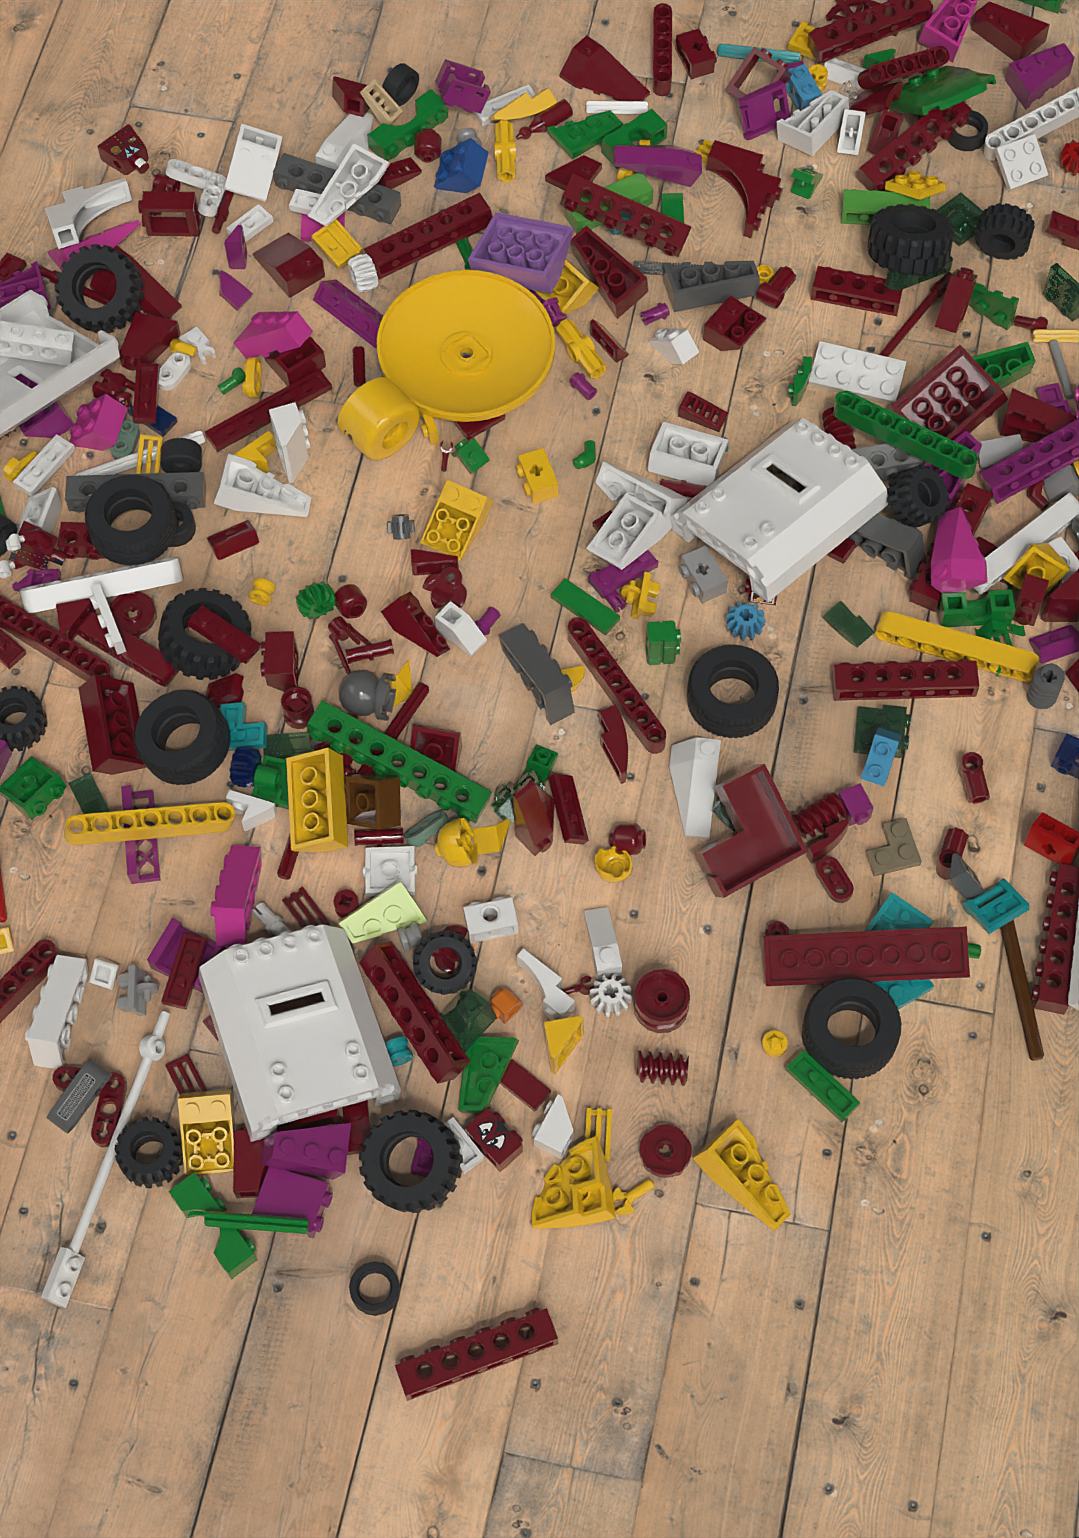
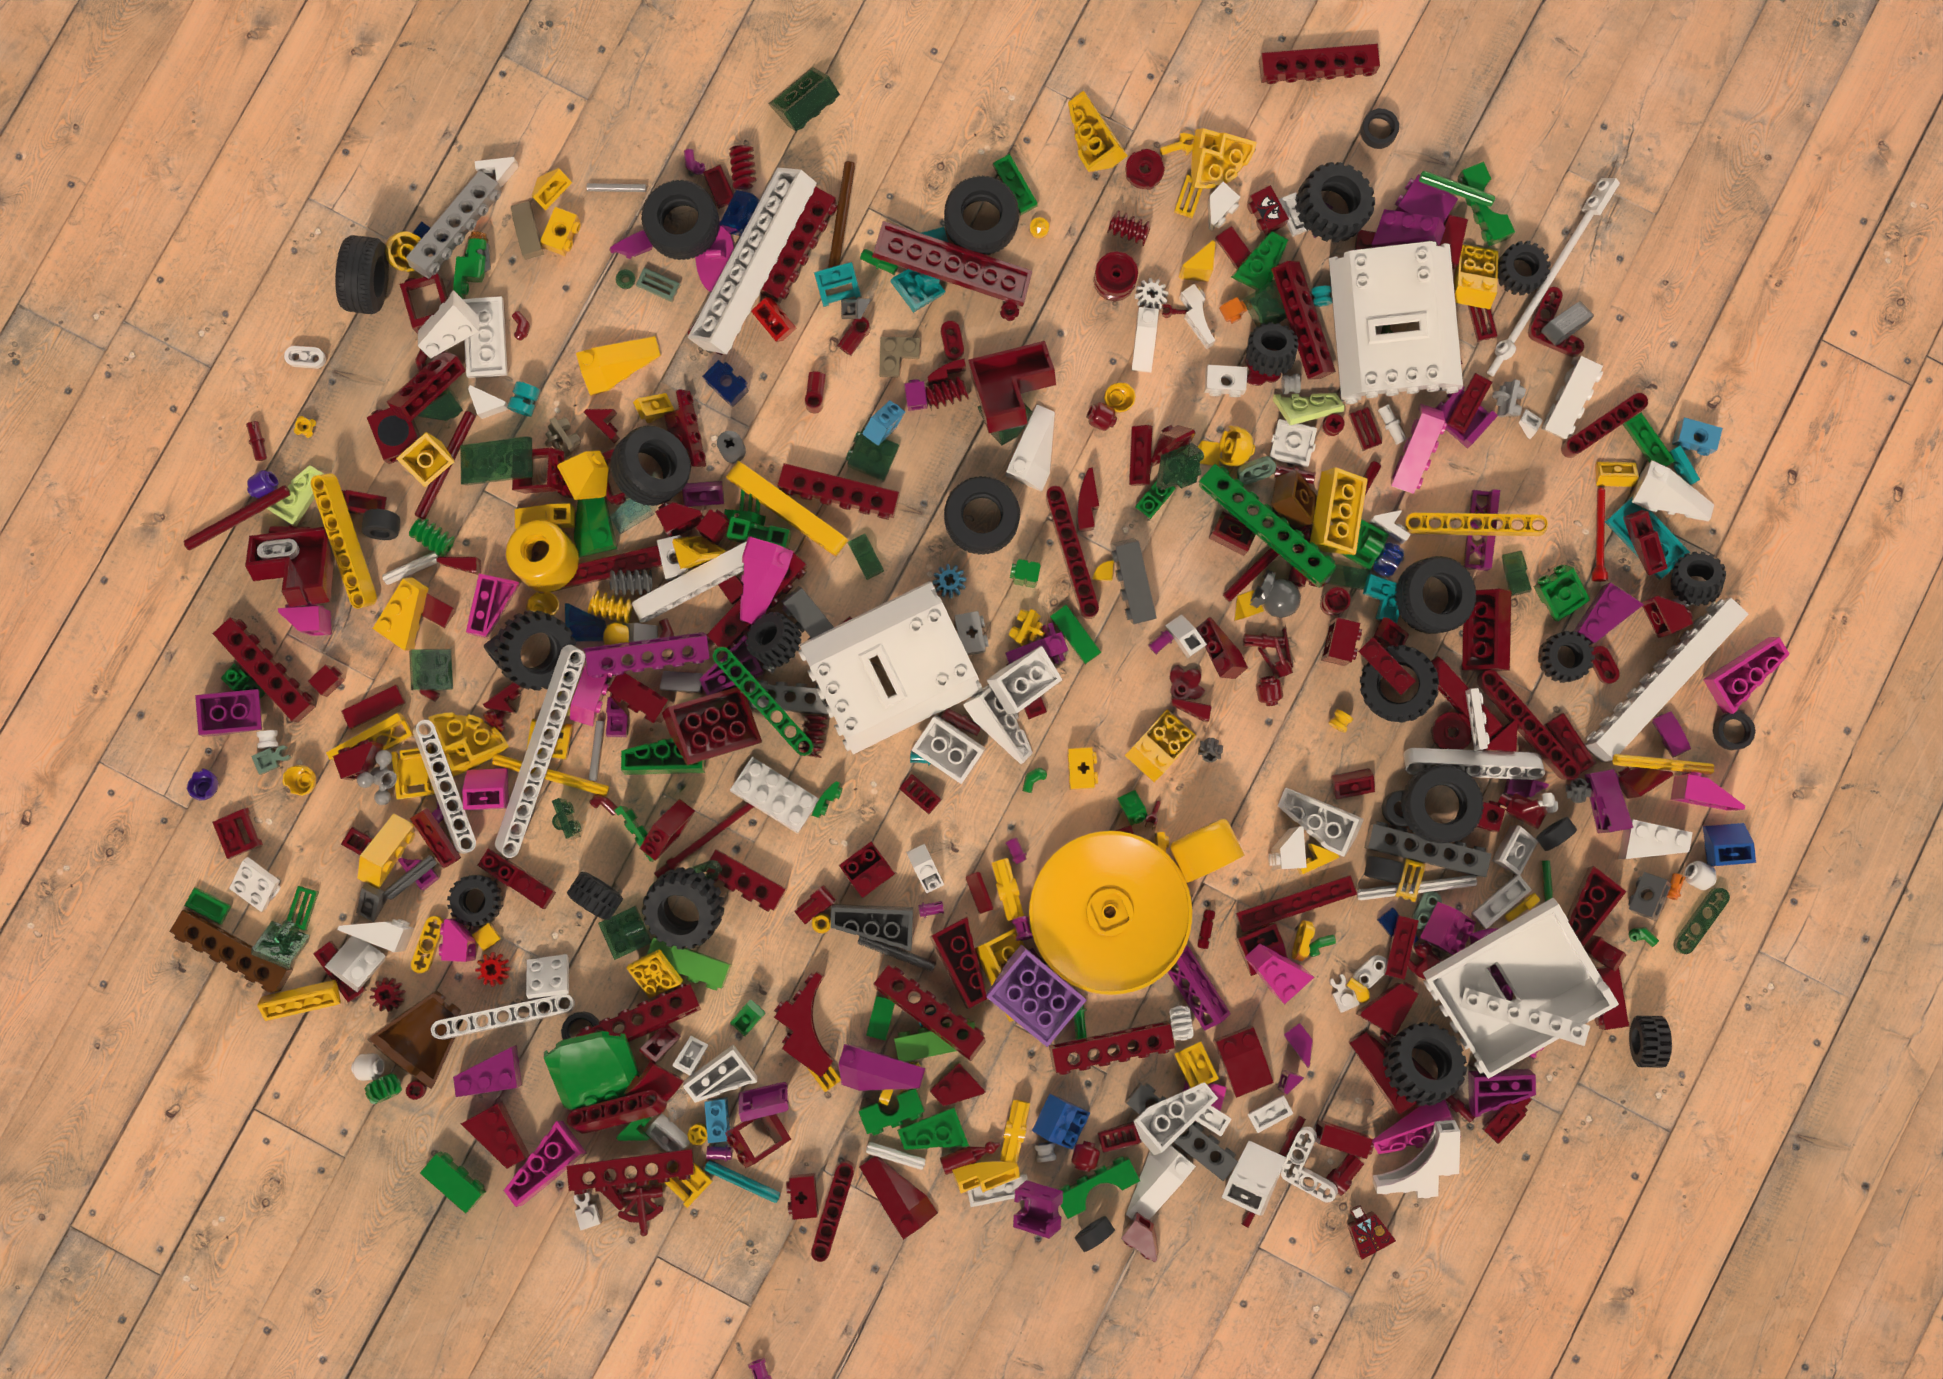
camera: 170 degrees left, 20 degrees up
(316, 600) = (1298, 696): green gear -> none
(390, 105) = (1109, 1203): tan slope -> none

